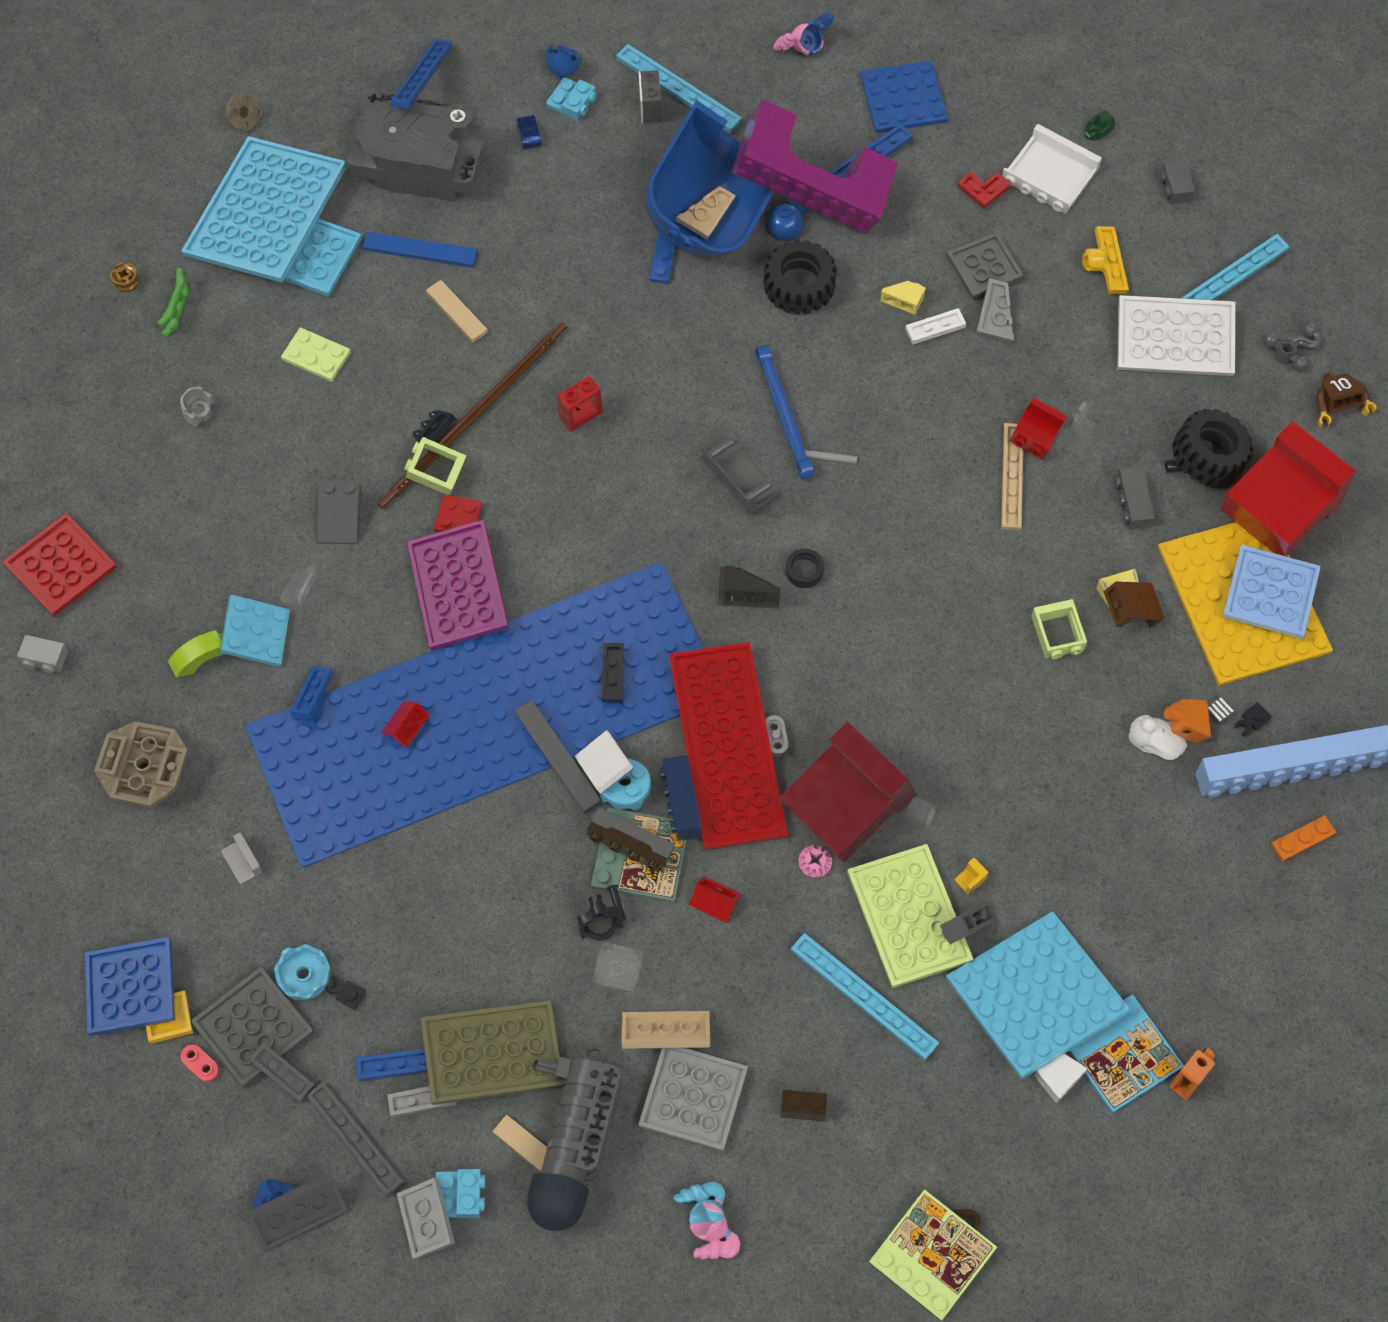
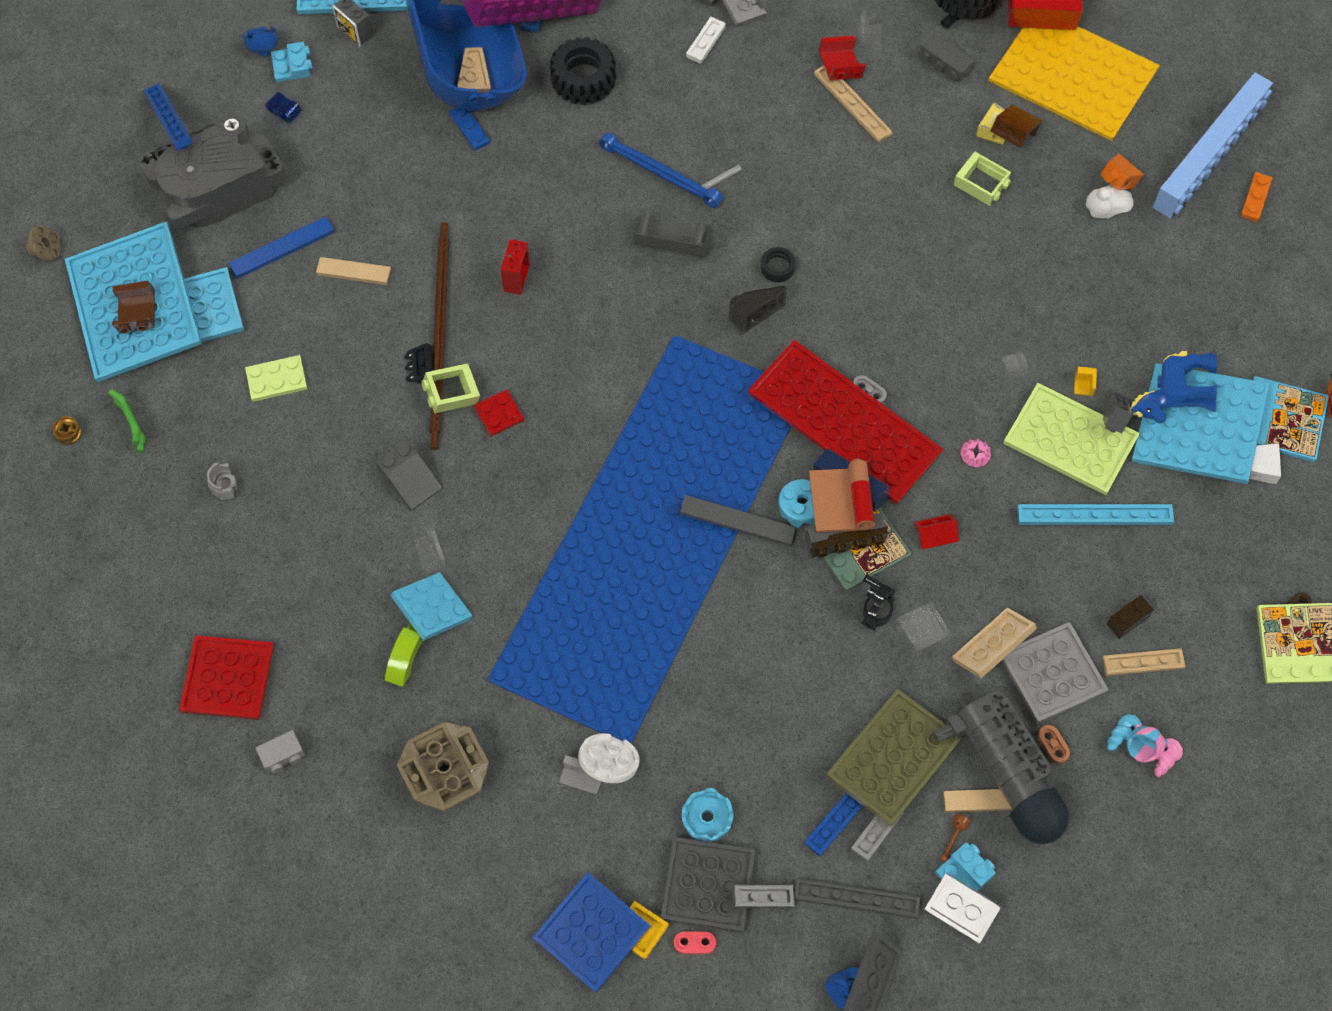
camera: 40 degrees left, 0 degrees up
(258, 215) = (135, 307): none -> reddish brown panel
(270, 862) = (608, 758): none -> white tile
(311, 692) = (518, 616): blue plate -> none
(347, 994) = (753, 804): black plate -> none
(406, 723) = (607, 582): red panel -> none
(457, 585) = (549, 458): magenta plate -> none
(492, 1152) = (960, 823): none -> dark orange hinge
(603, 761) = (776, 497): white tile -> none
(612, 672) = (720, 433): black plate -> none
(633, 1155) = (1055, 744): none -> nougat plate
(651, 805) = (842, 498): none -> nougat door
(780, 1154) = (1143, 662): none -> tan tile
(784, 222) = (534, 42): blue cylinder -> none
(848, 793) = (963, 385): dark red piece -> none
(904, 296) = (666, 34): light yellow slope -> none
(1038, 941) = (1174, 387): none -> blue animal
(1220, 710) = (1130, 154): dark grey tile -> none
(1253, 717) = (1155, 144): black plate -> none
(1271, 591) = (1091, 54): light blue plate -> none

